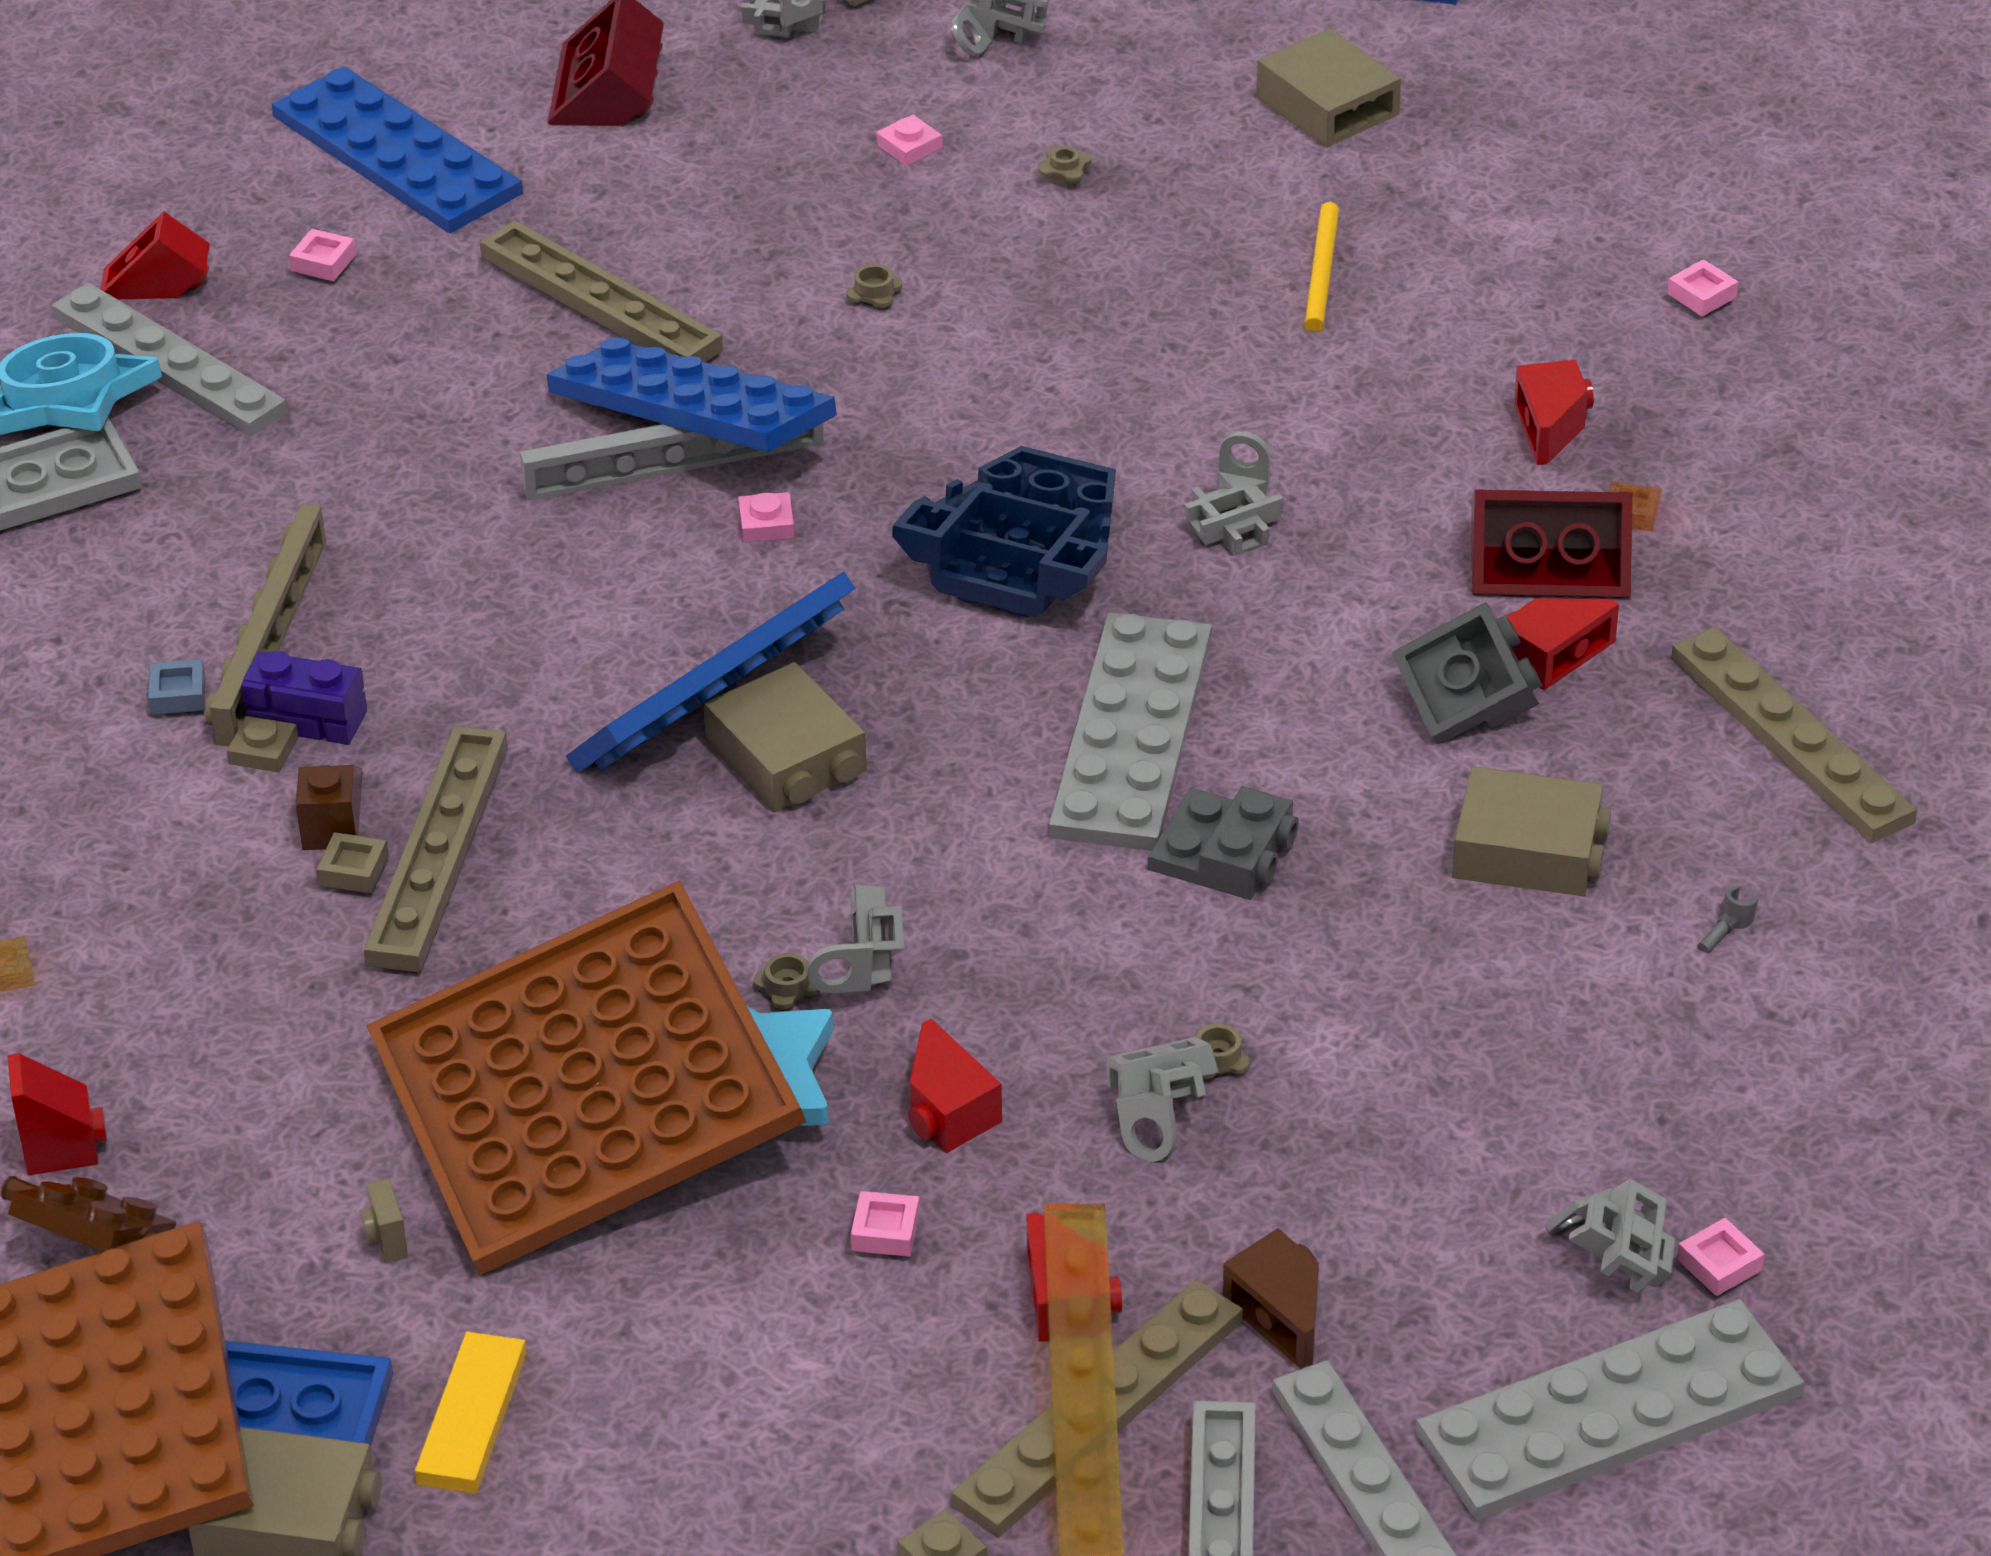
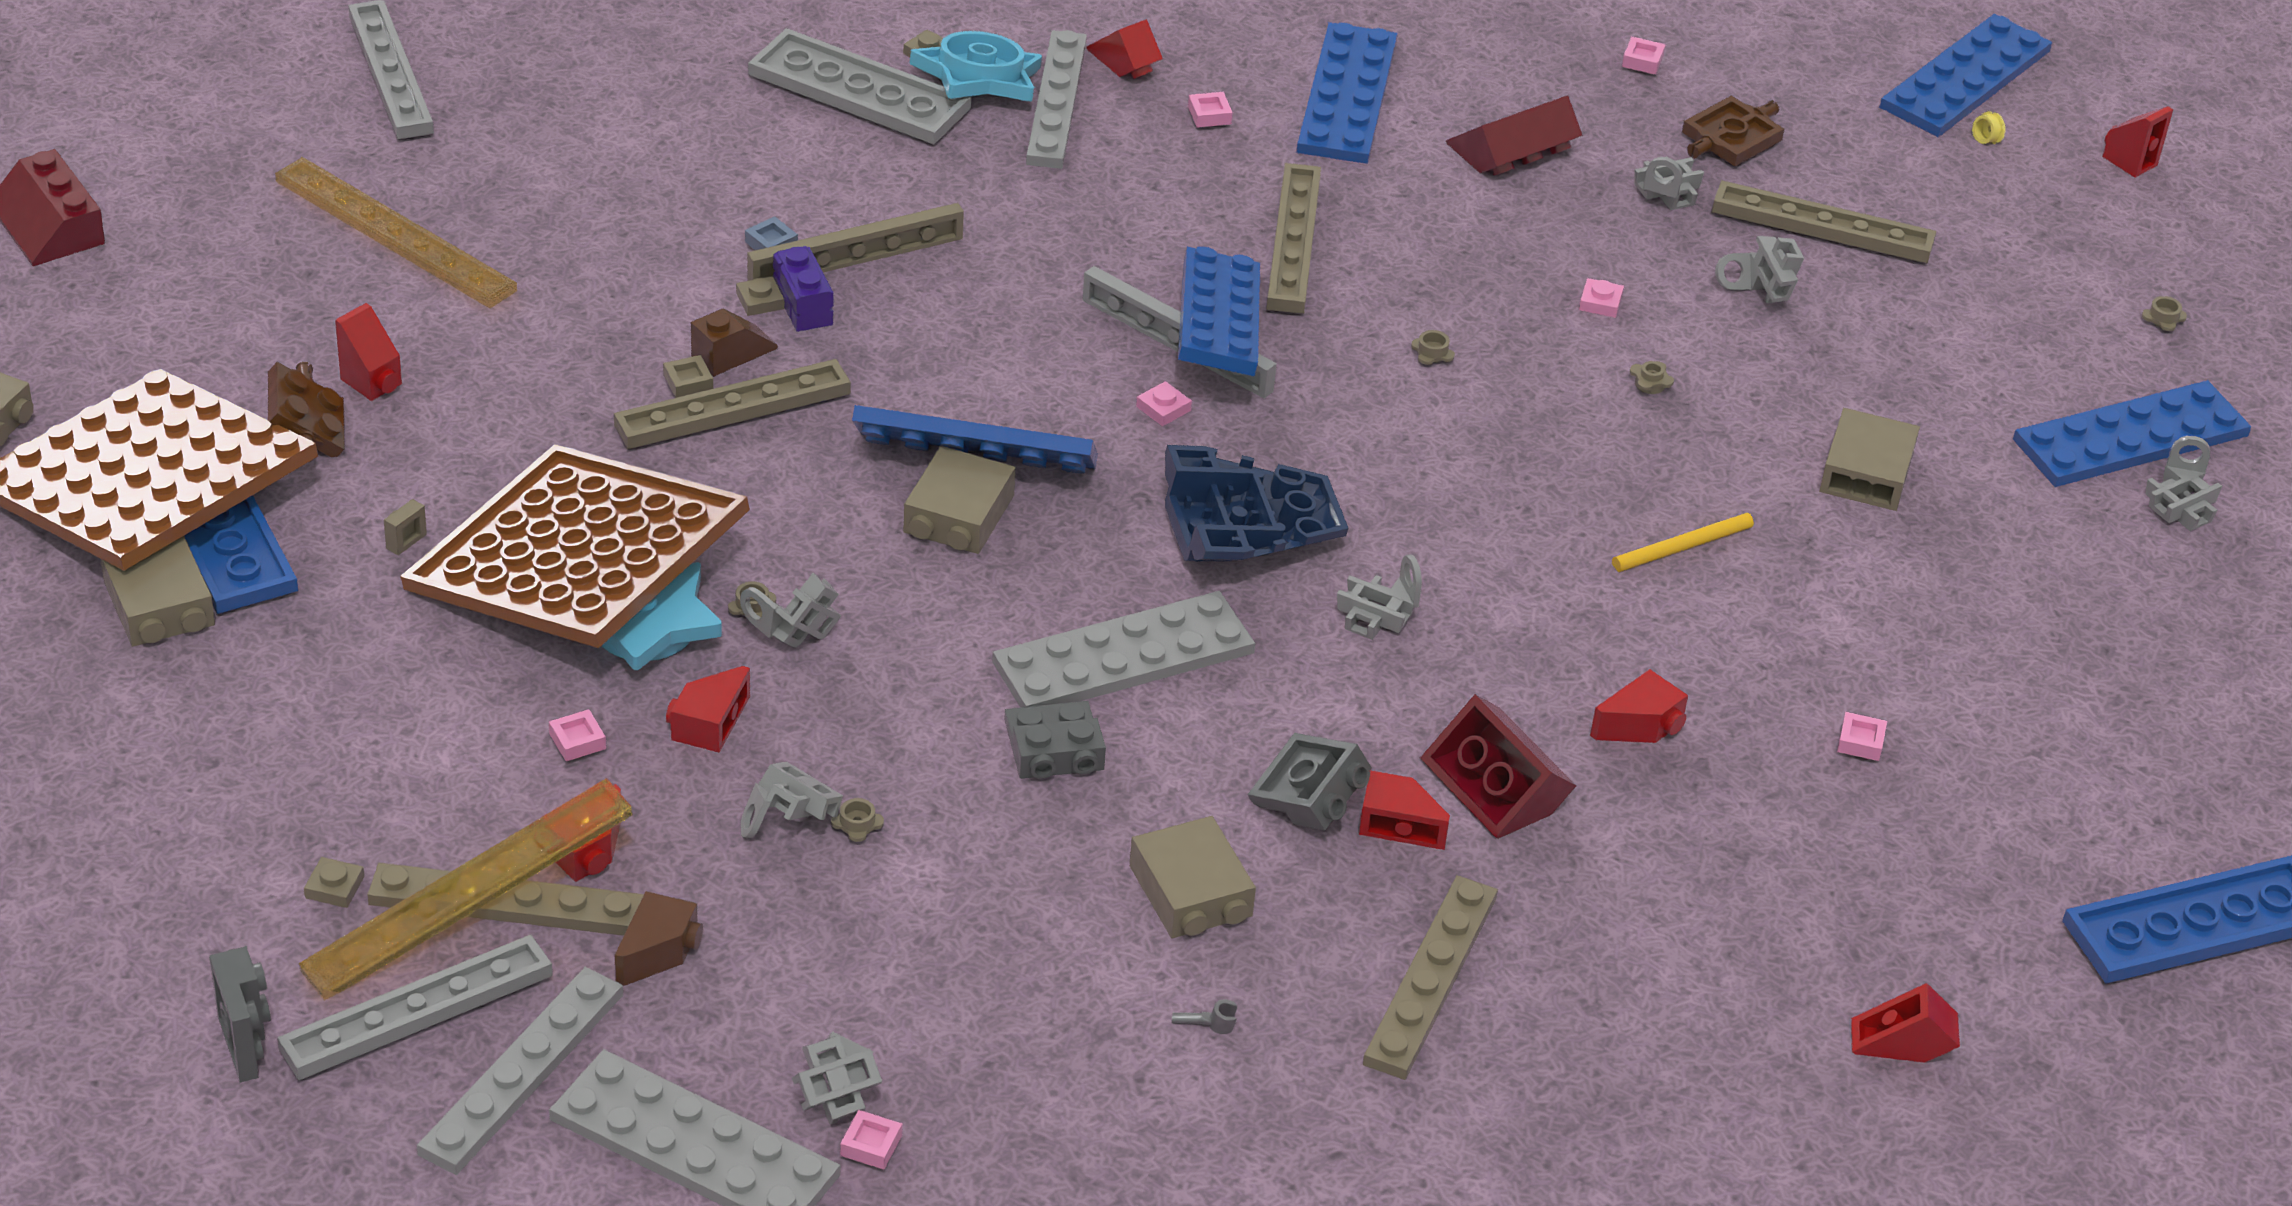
camera: 50 degrees right, 0 degrees up
(470, 1412) = (292, 635): yellow tile -> none
(1645, 504) = (1592, 799): clear orange tile -> none

